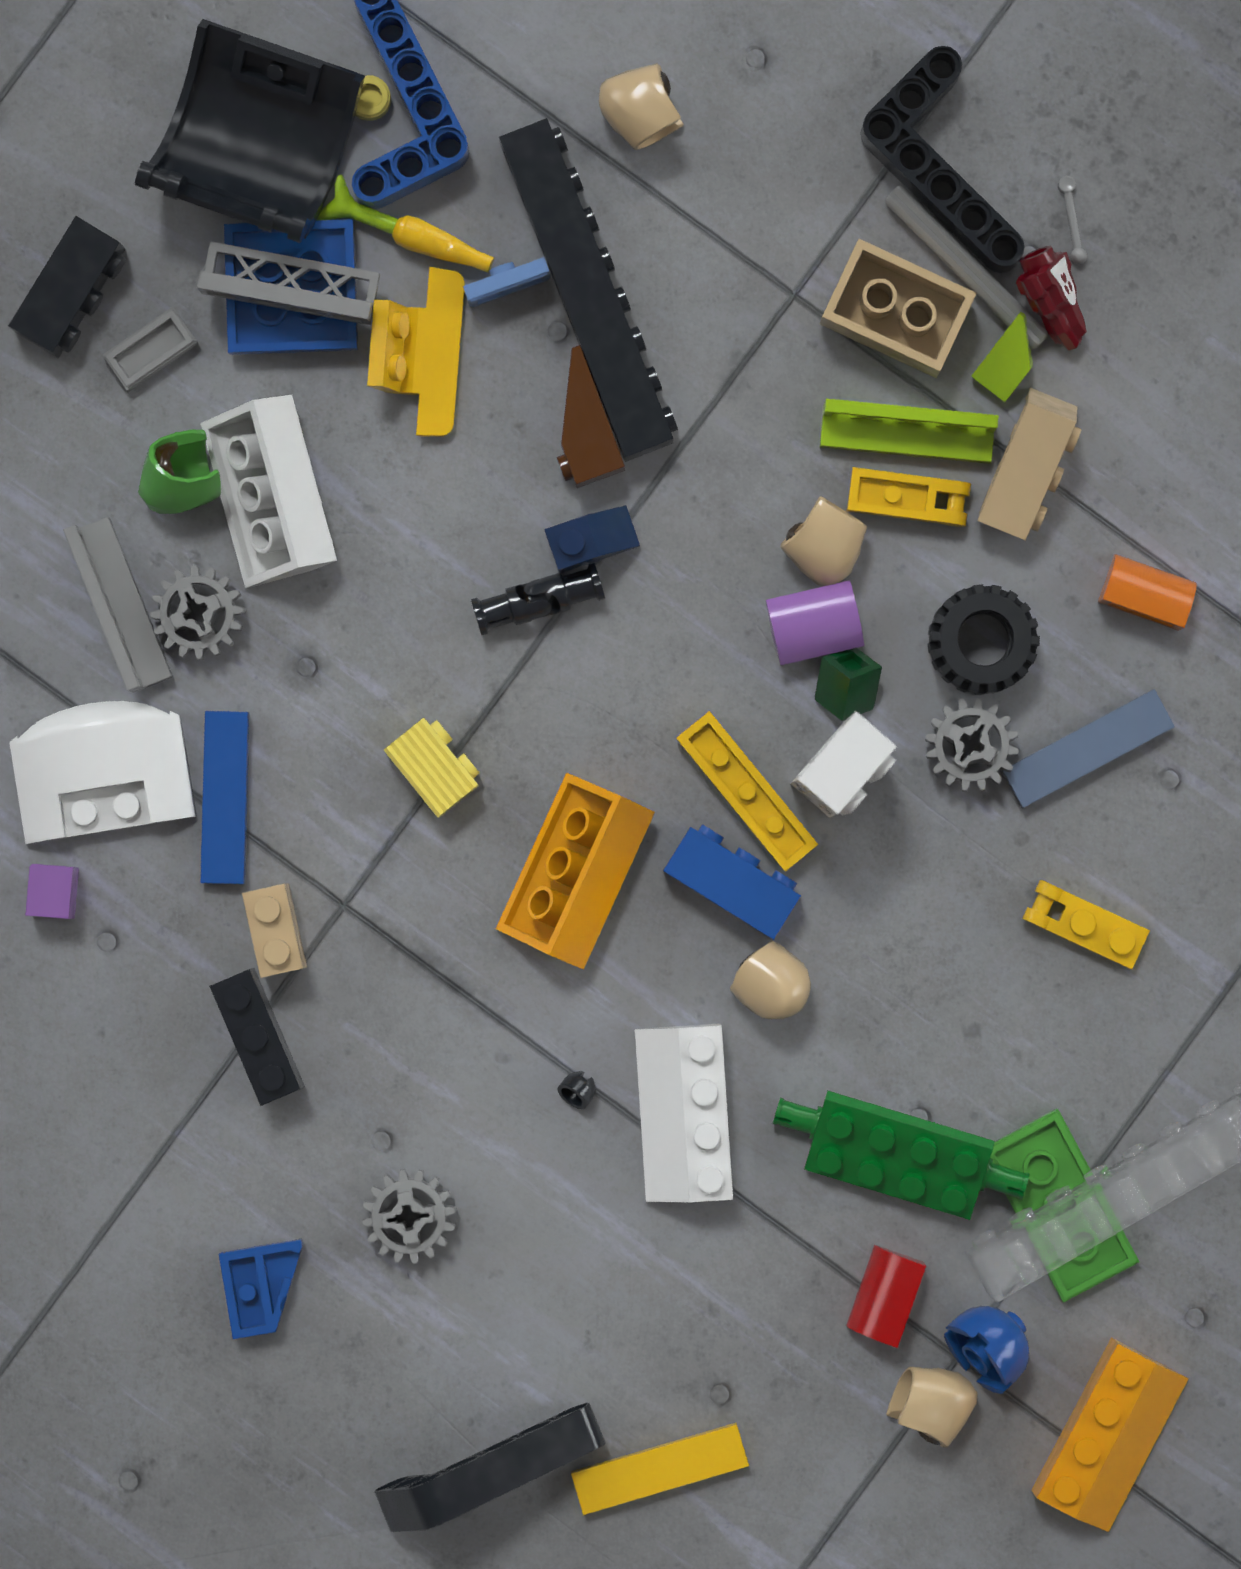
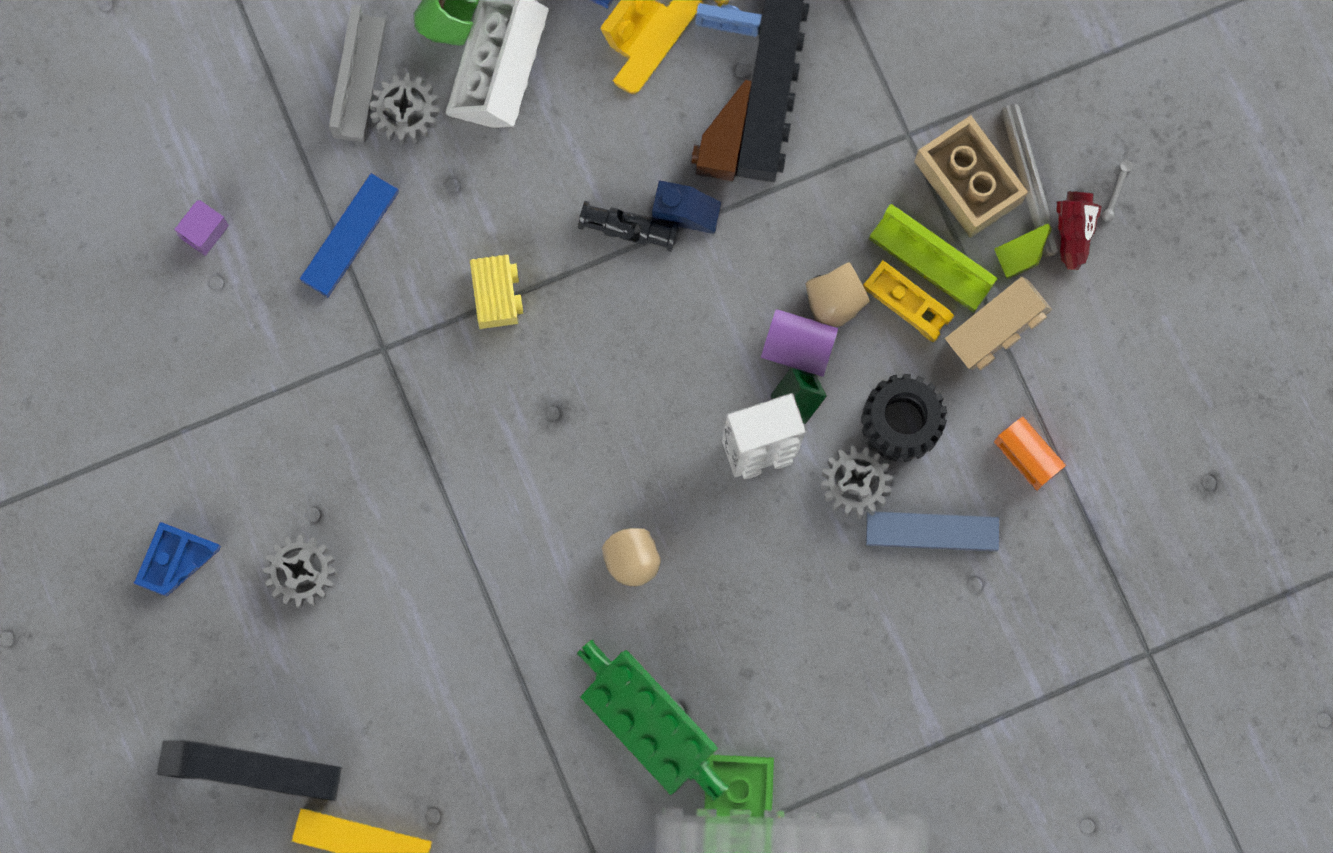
camera: 20 degrees right, 10 degrees down
(101, 770) = (281, 173): white slope -> none
(257, 1036) = (274, 396): black brick -> none
(274, 930) = (328, 334): tan brick -> none
(575, 870) = (547, 412): light orange slope -> none
(577, 1090) = (461, 555): black hinge -> none
(684, 1113) = (523, 612): white slope -> none
(733, 880) = (646, 478): blue brick -> none
(747, 791) = (690, 427): yellow plate -> none
(886, 1296) = (584, 814): red brick -> none
(934, 166) = (1045, 105): black beam -> none
(1087, 925) = (864, 647): yellow plate -> none

